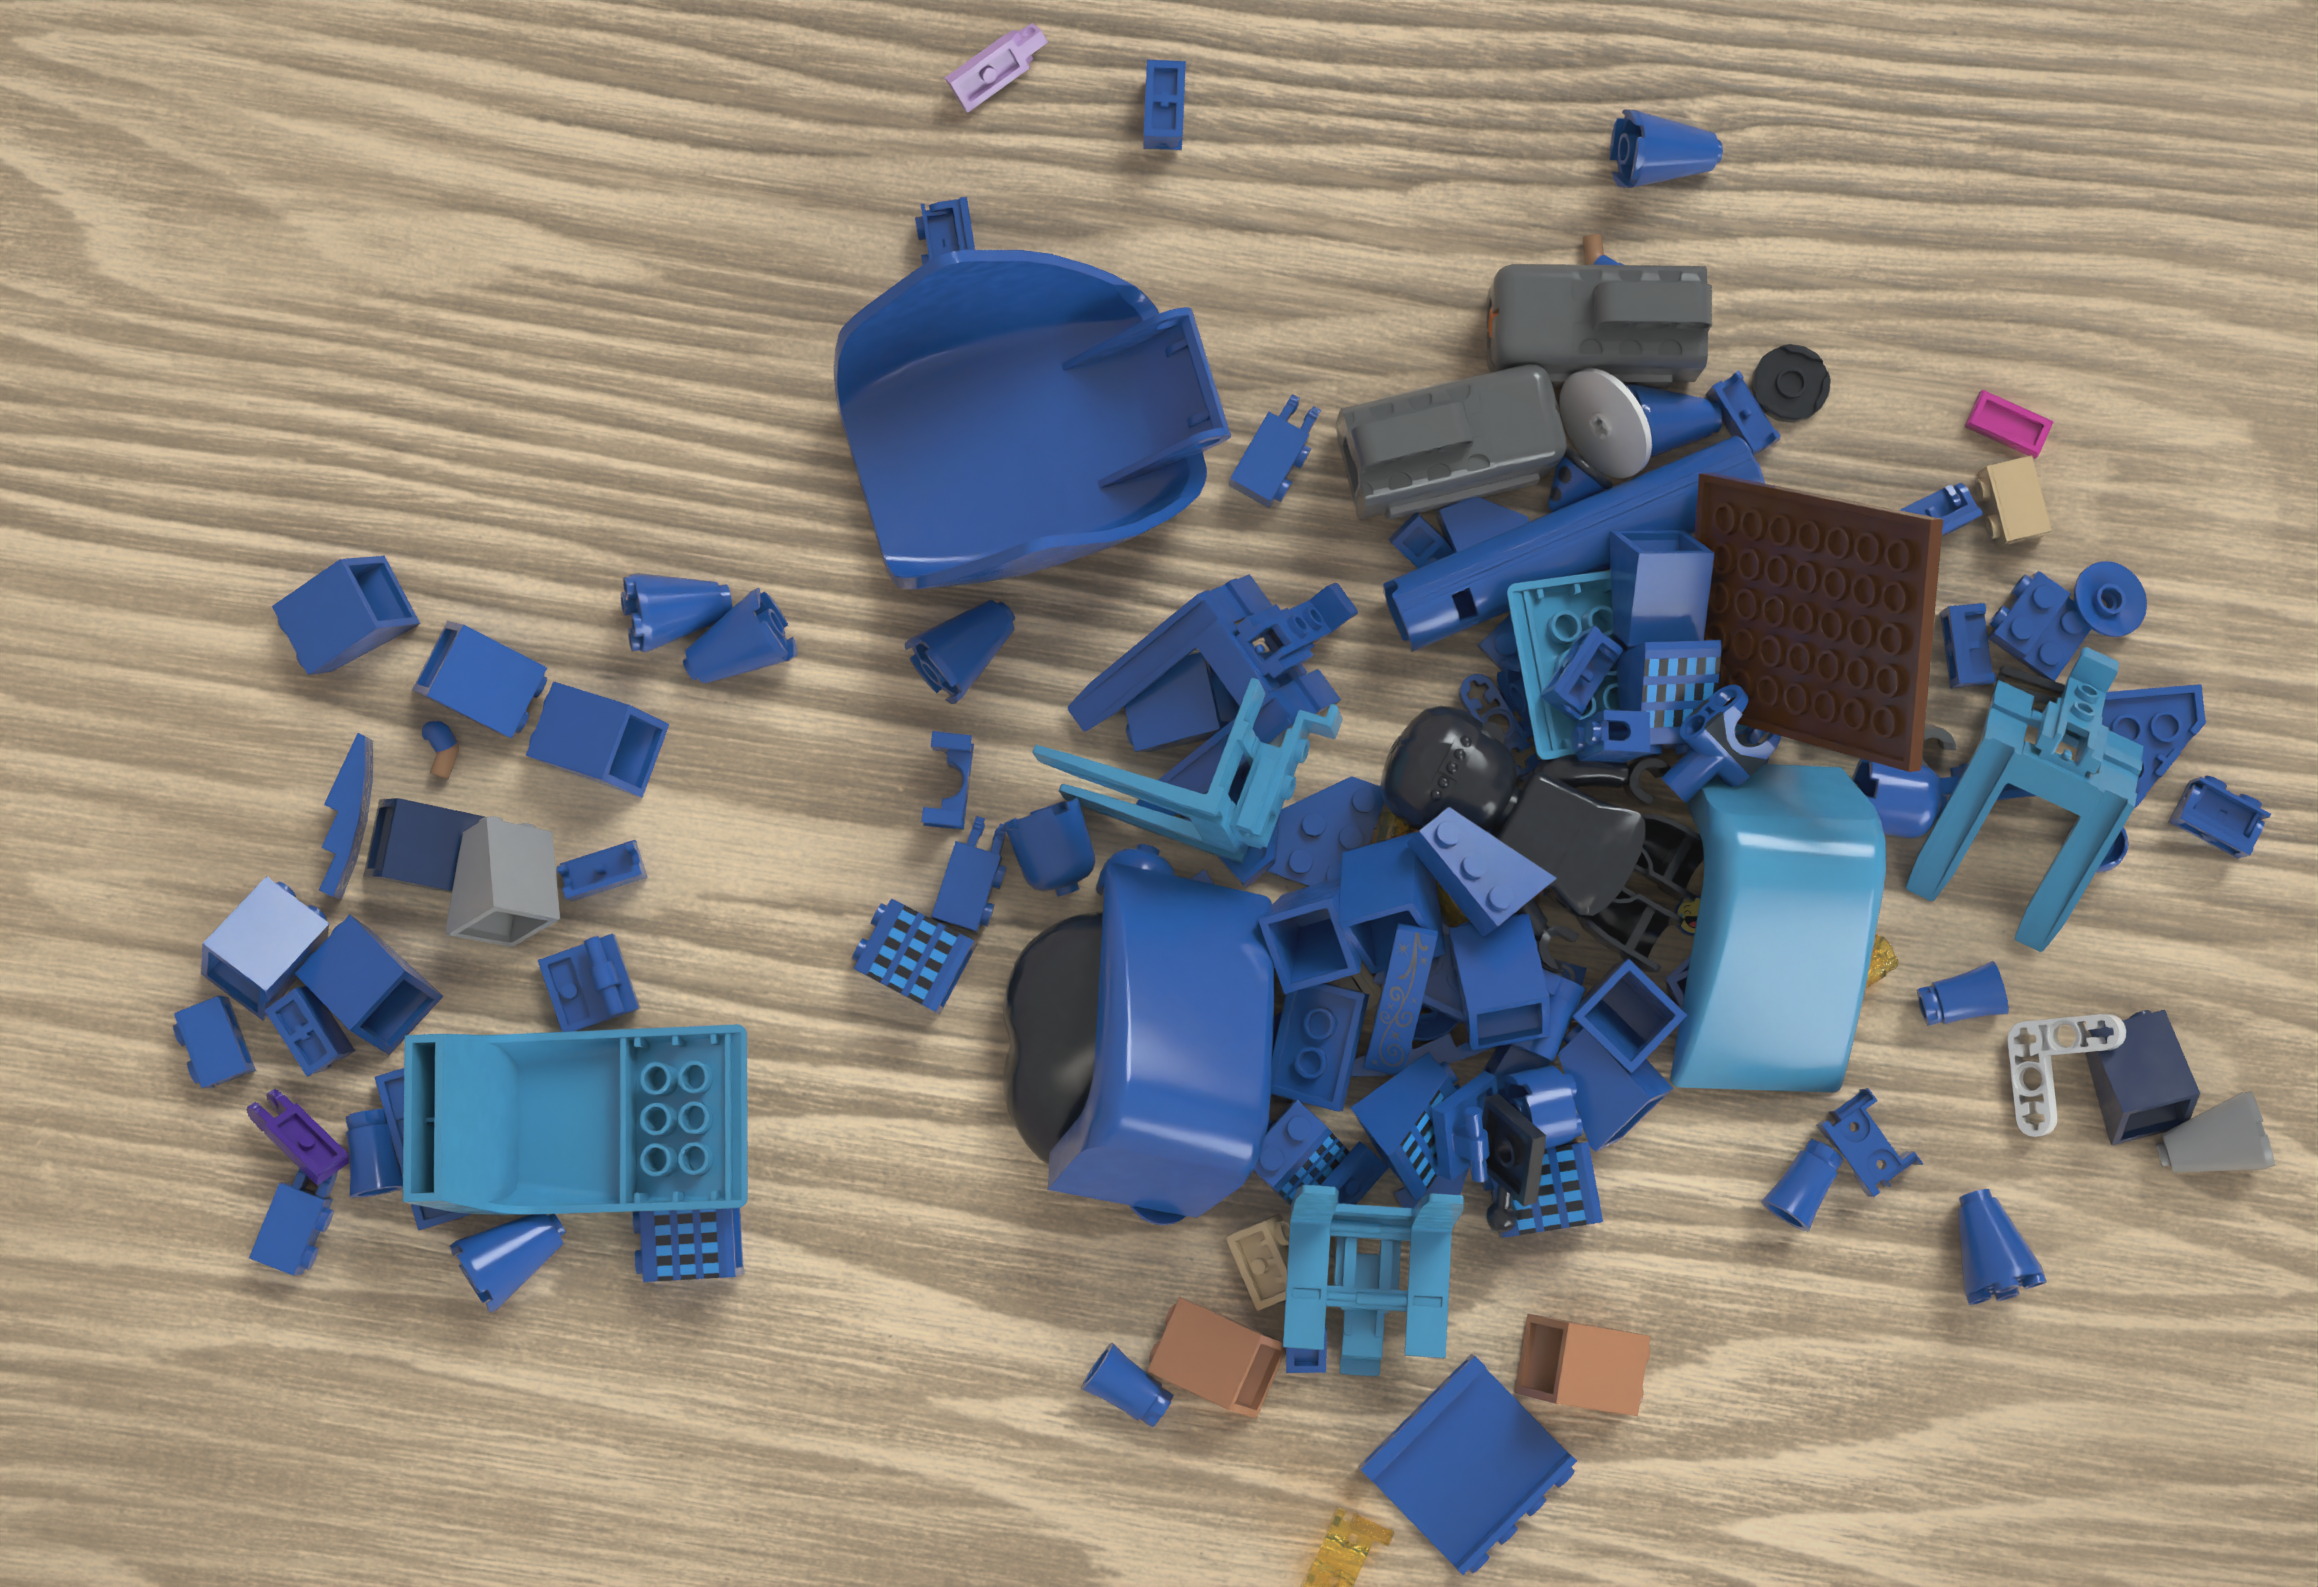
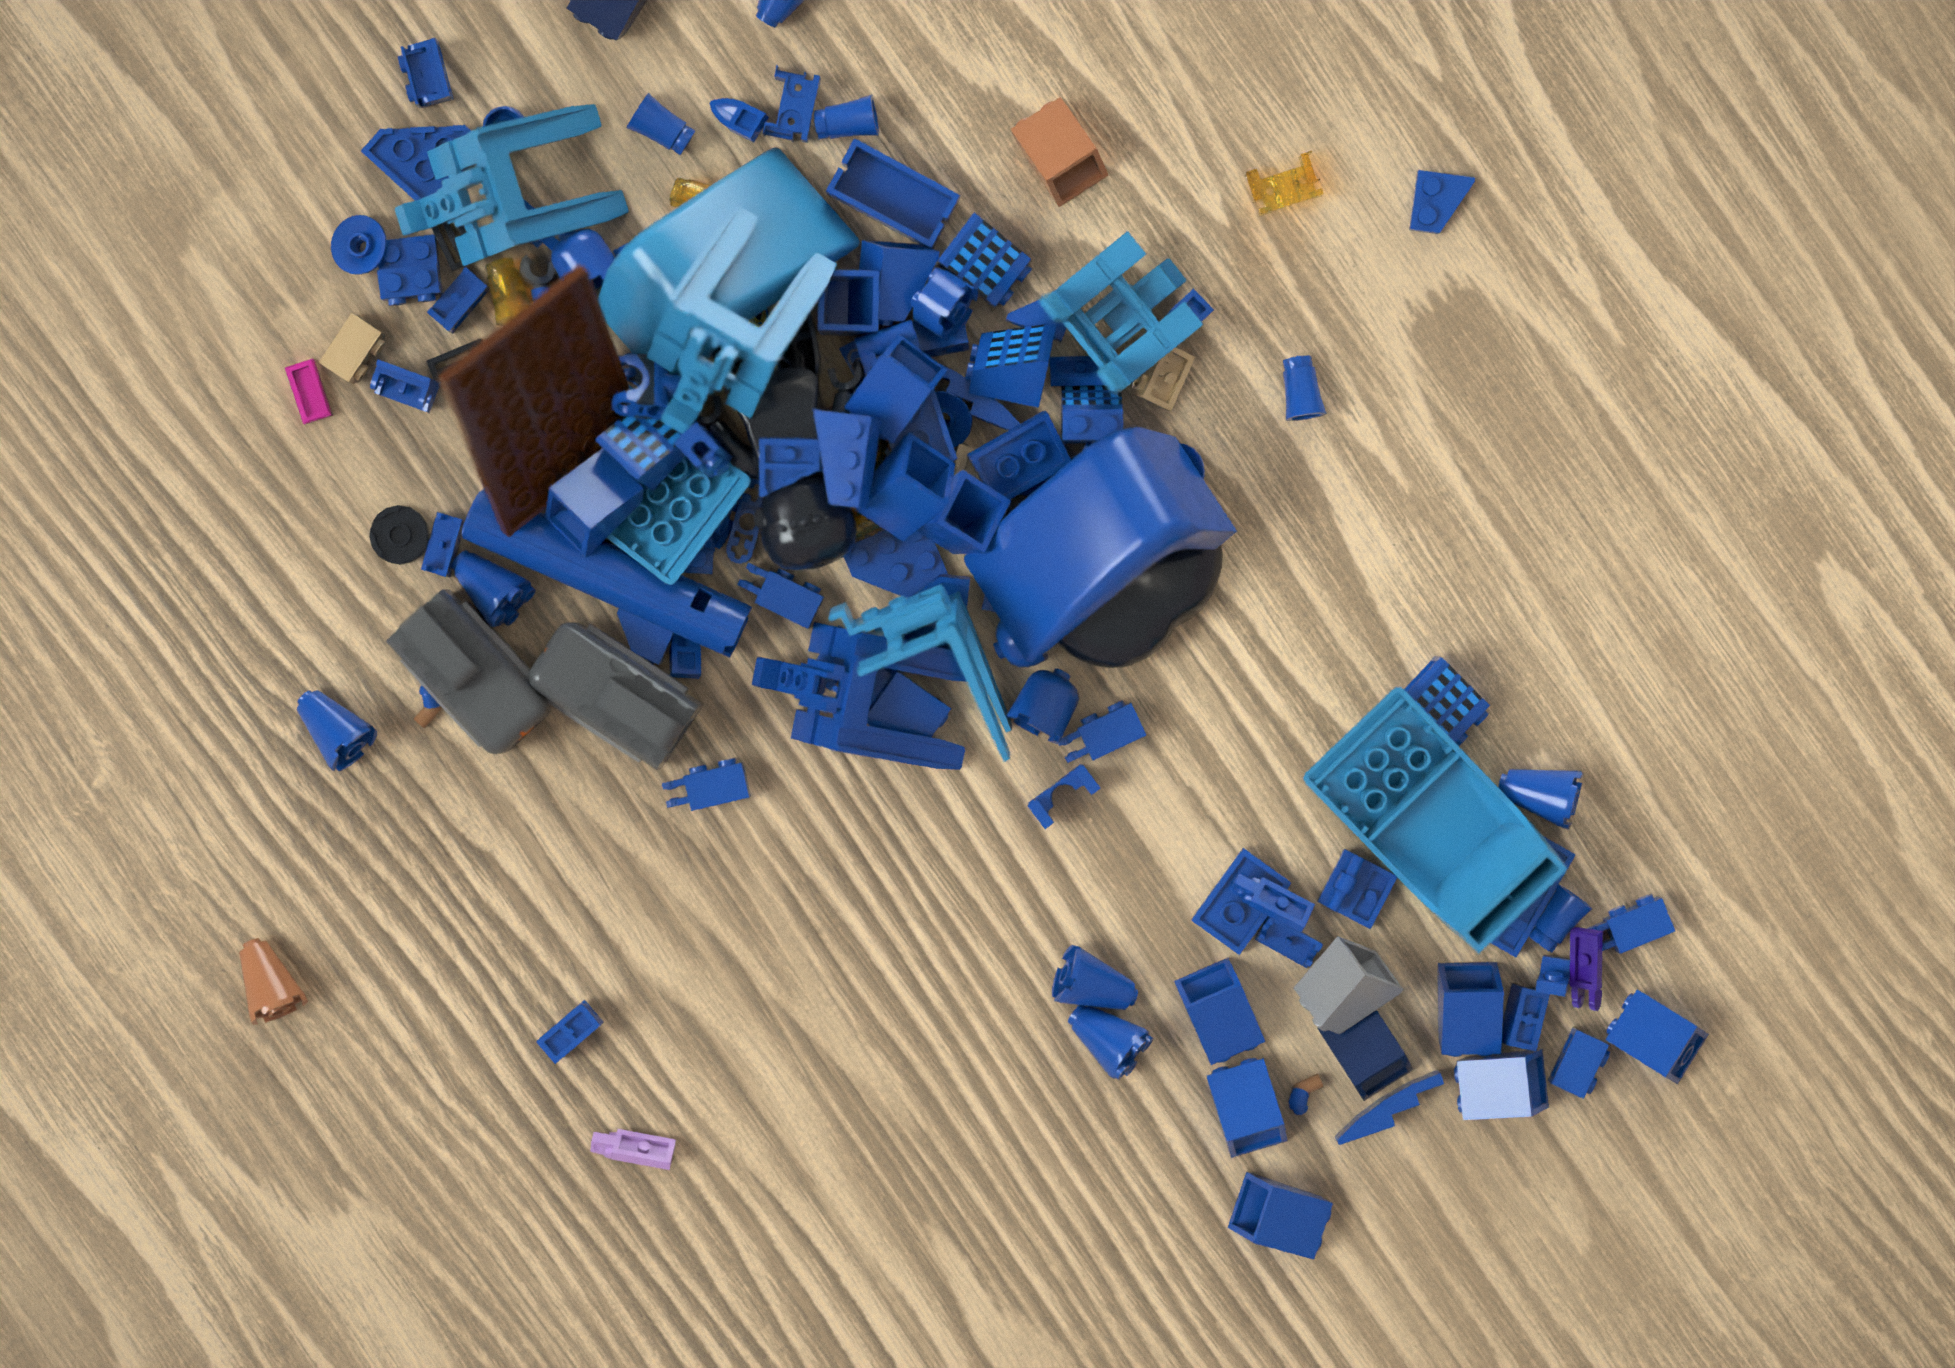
camera: 125 degrees left, 5 degrees up
(167, 1142) = (1656, 1036): none -> blue slope
(320, 1096) = (1554, 976): none -> blue bracket
(652, 890) = (1273, 901): none -> blue hinge
(684, 860) = (1225, 913): none -> blue plate
(913, 955) = (1176, 725): slope -> none
(945, 228) = (760, 1079): blue hinge -> none
(961, 648) = (982, 858): blue cone -> none
(1020, 415) = (826, 939): blue windscreen -> none
(1216, 1358) = (1241, 355): nougat slope -> none
(1392, 693) = (785, 596): none -> blue hinge
(1400, 999) = (955, 434): blue slope -> none
(1460, 1130) = (990, 332): blue plate -> none
(1468, 1465) = (1171, 164): blue panel -> none
(1513, 1161) = (985, 294): black plate -> none
(1528, 805) = (786, 461): none -> blue wing
(1575, 481) = (569, 604): hat -> none
(1581, 672) = (682, 500): blue hinge -> none
(1605, 423) = (524, 616): white piece -> none
(1690, 1160) = (893, 194): none -> blue piece
(1756, 841) = (759, 347): none -> dark azure piece
(1902, 1081) = (739, 117): none -> blue plate
(1950, 705) = (506, 289): none -> clear yellow plant
(2045, 1046) = (648, 55): white beam -> none

